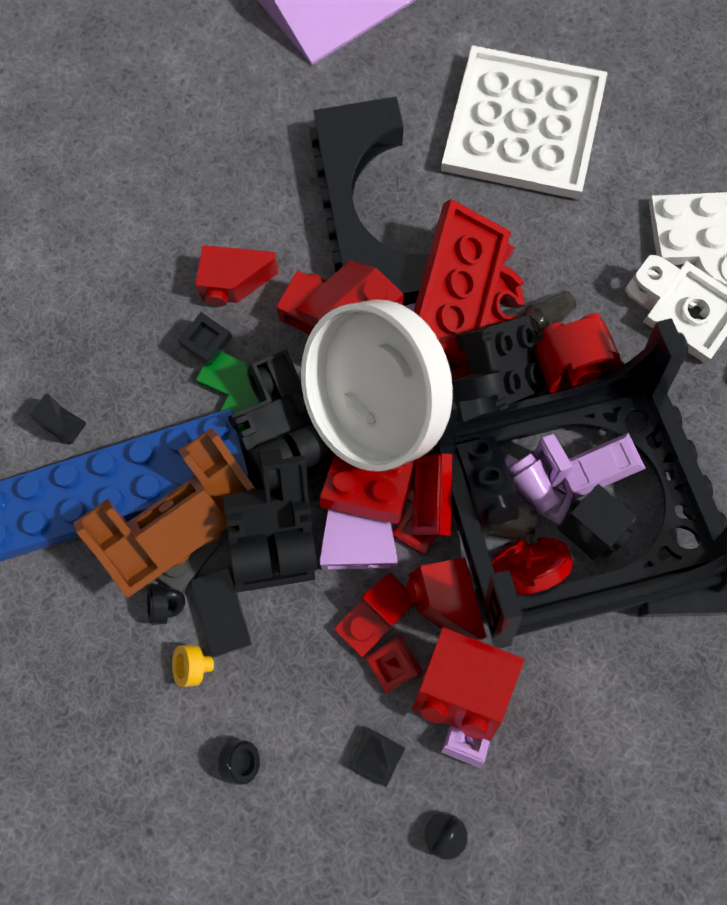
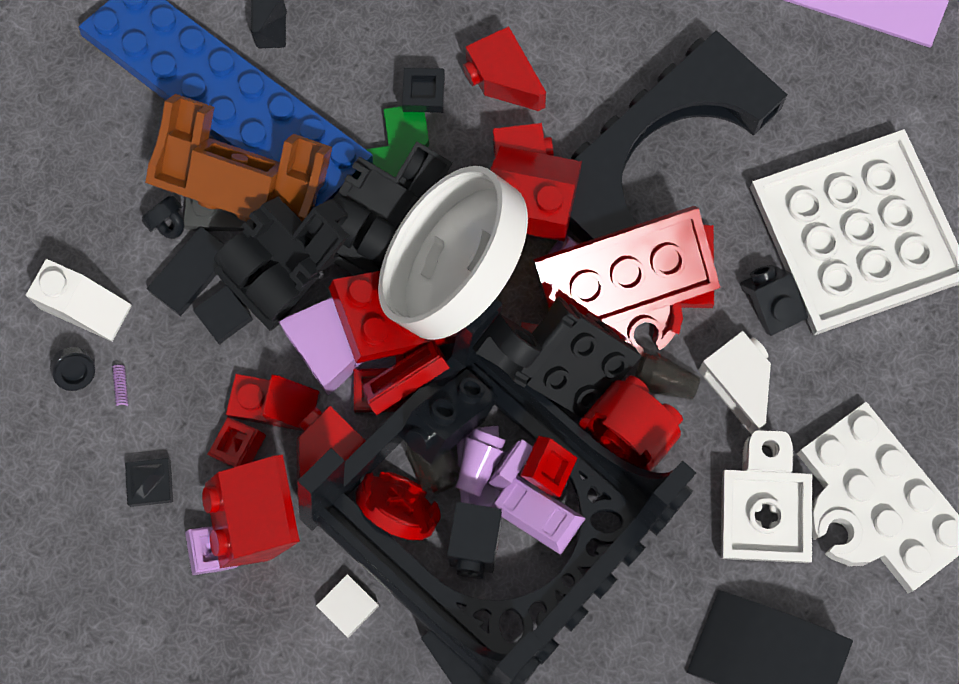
camera: 55 degrees right, 0 degrees up
(183, 720) = (78, 300): none -> white slope
(190, 665) = (128, 275): yellow tile -> none
(275, 609) = (222, 314): none -> black tile
(278, 732) = (124, 382): none -> lavender leg
(446, 836) = (118, 582): black tile -> none
(536, 203) = (774, 298): none -> black bracket
(575, 432) = (549, 466): none -> red plate
(579, 657) = (347, 605): none -> white tile
(586, 263) = (741, 379): none -> white slope

